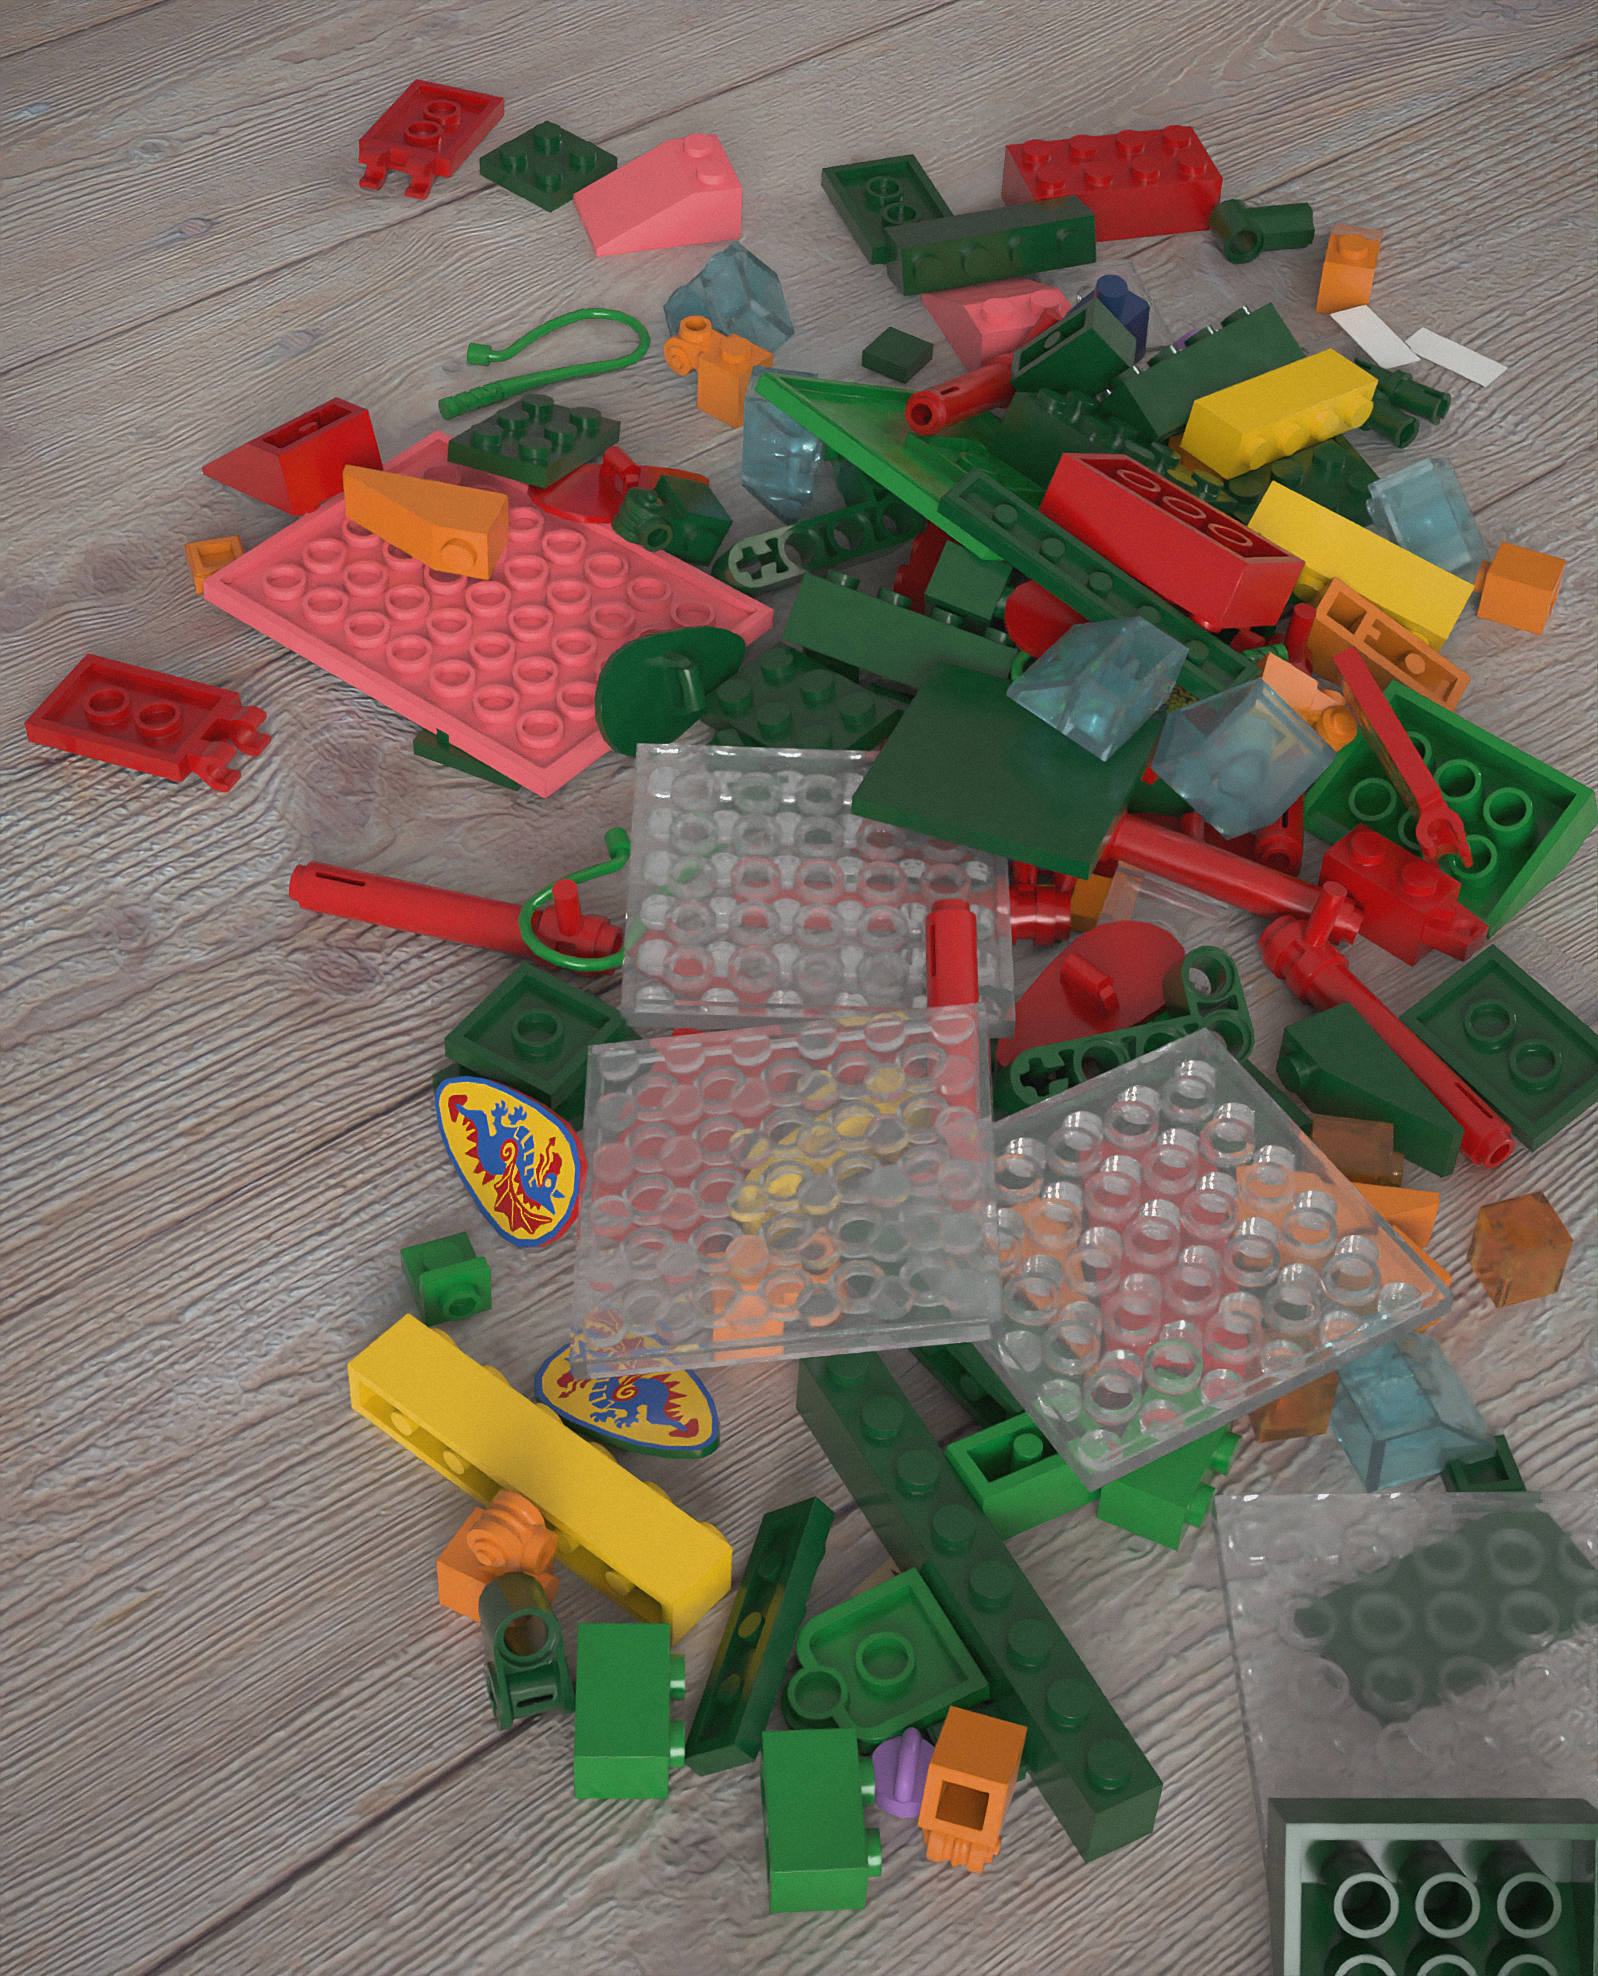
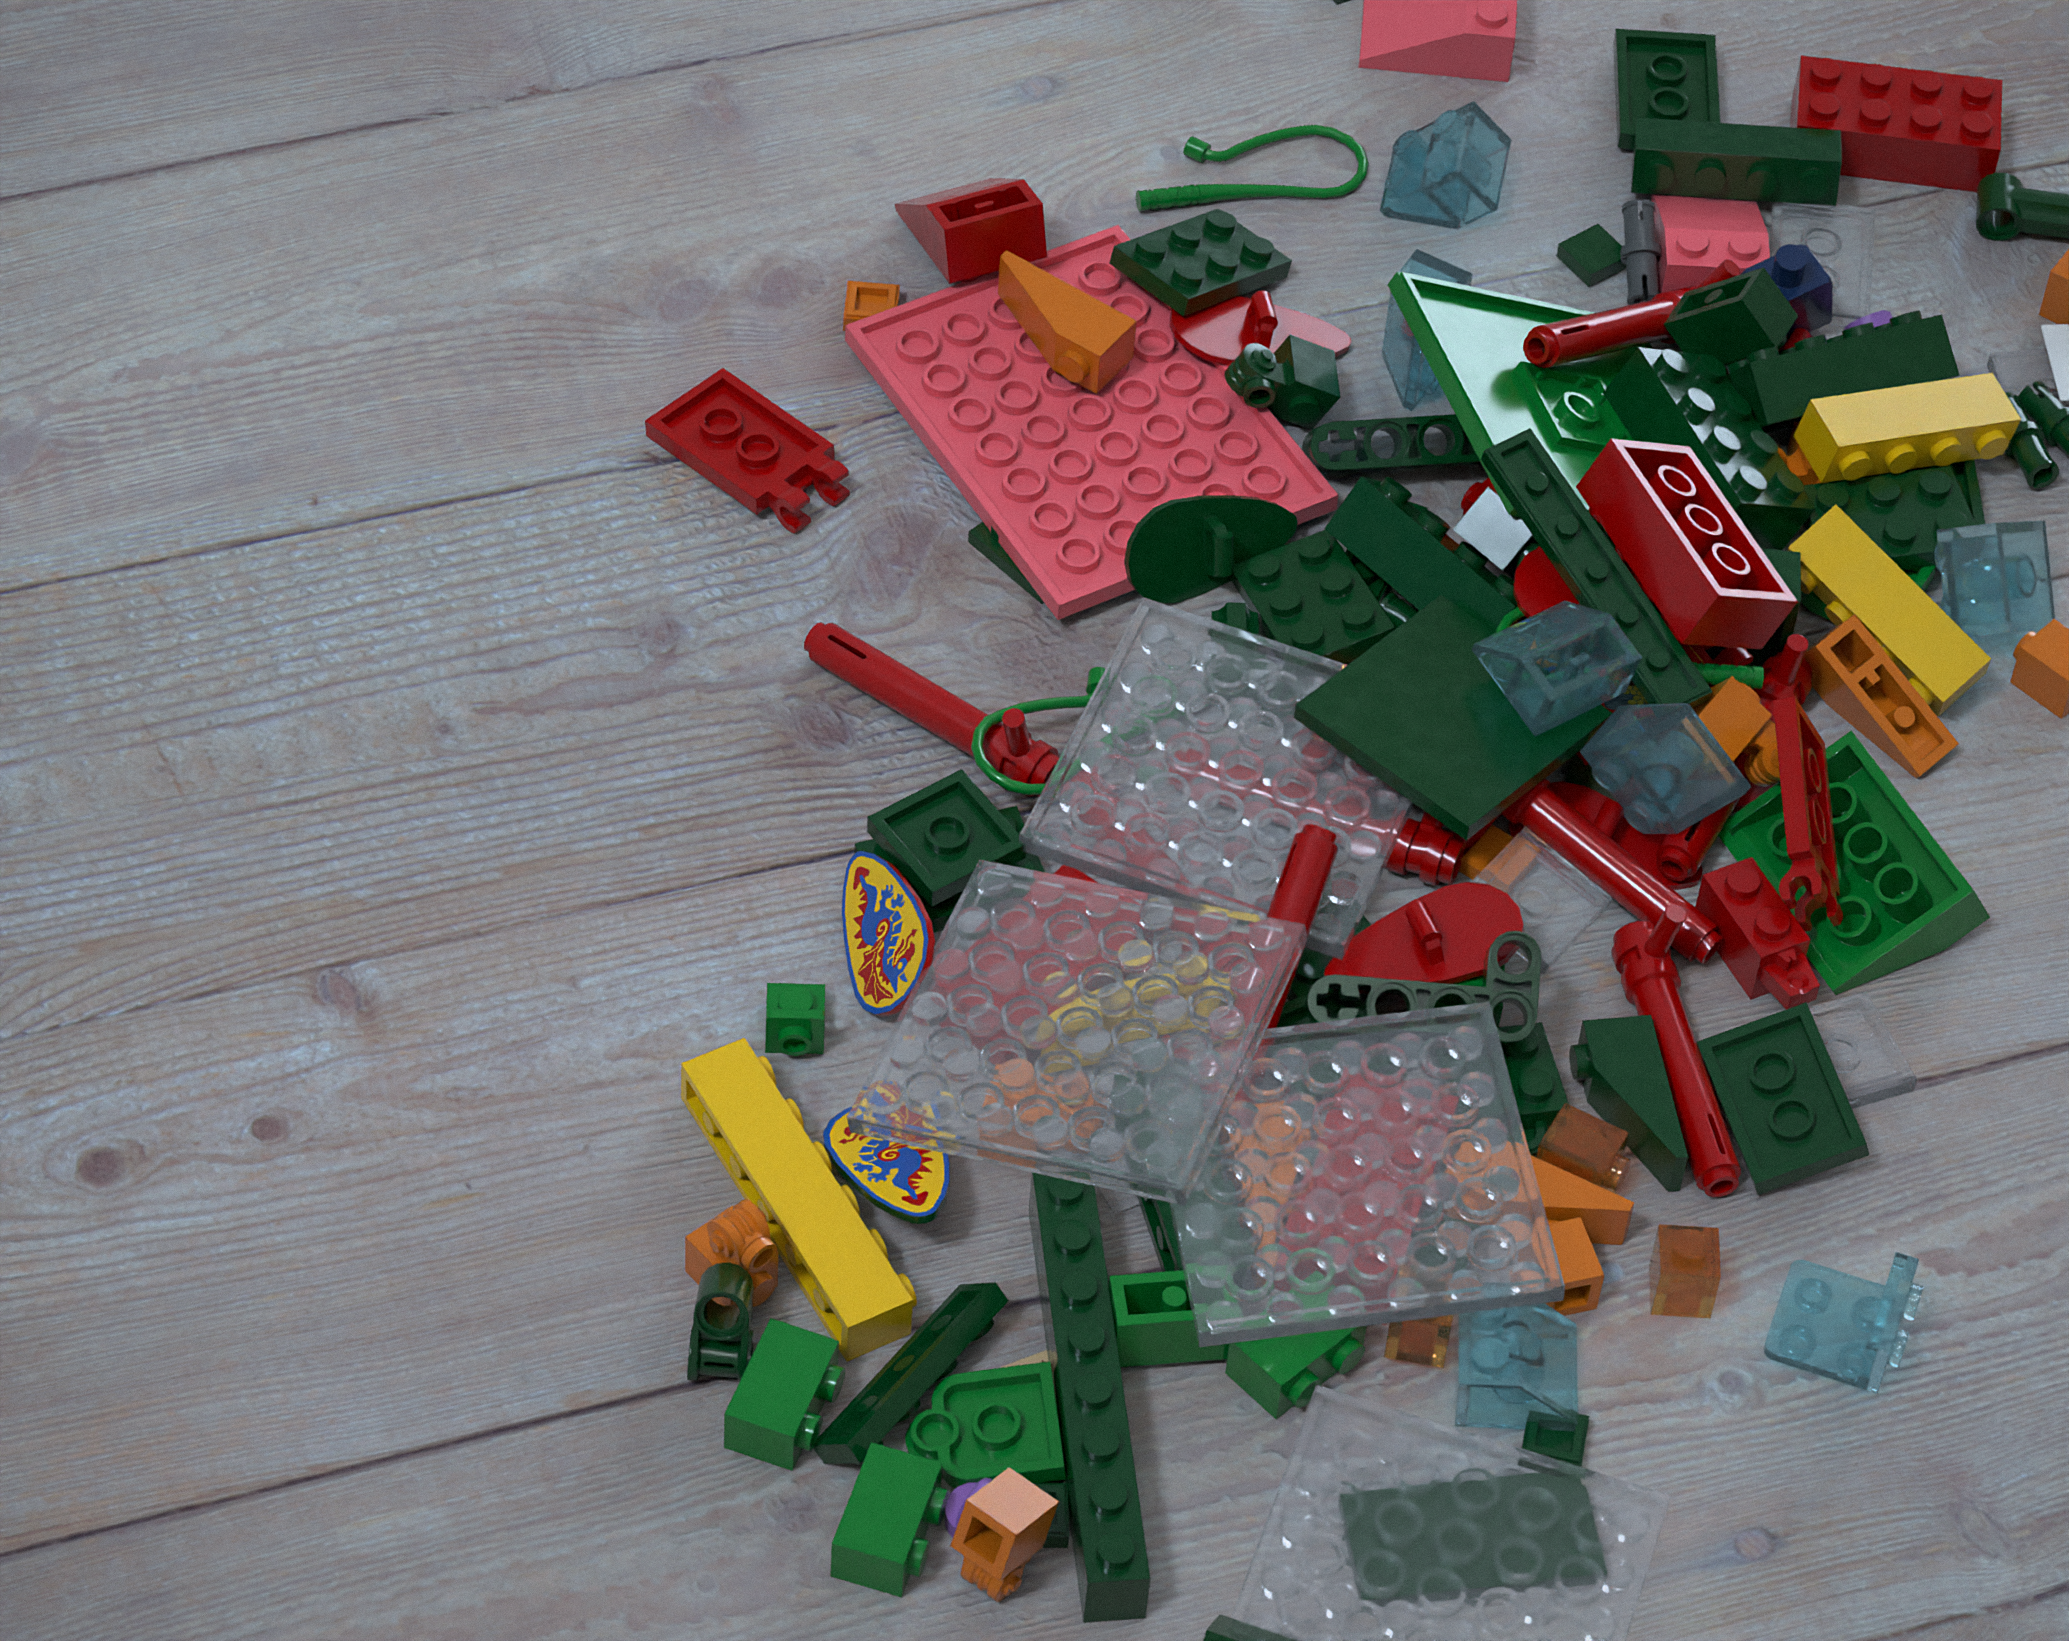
camera: 20 degrees right, 5 degrees up
(721, 363) = (1406, 223): orange brick -> none
(944, 335) = (1640, 251): none -> dark grey pin

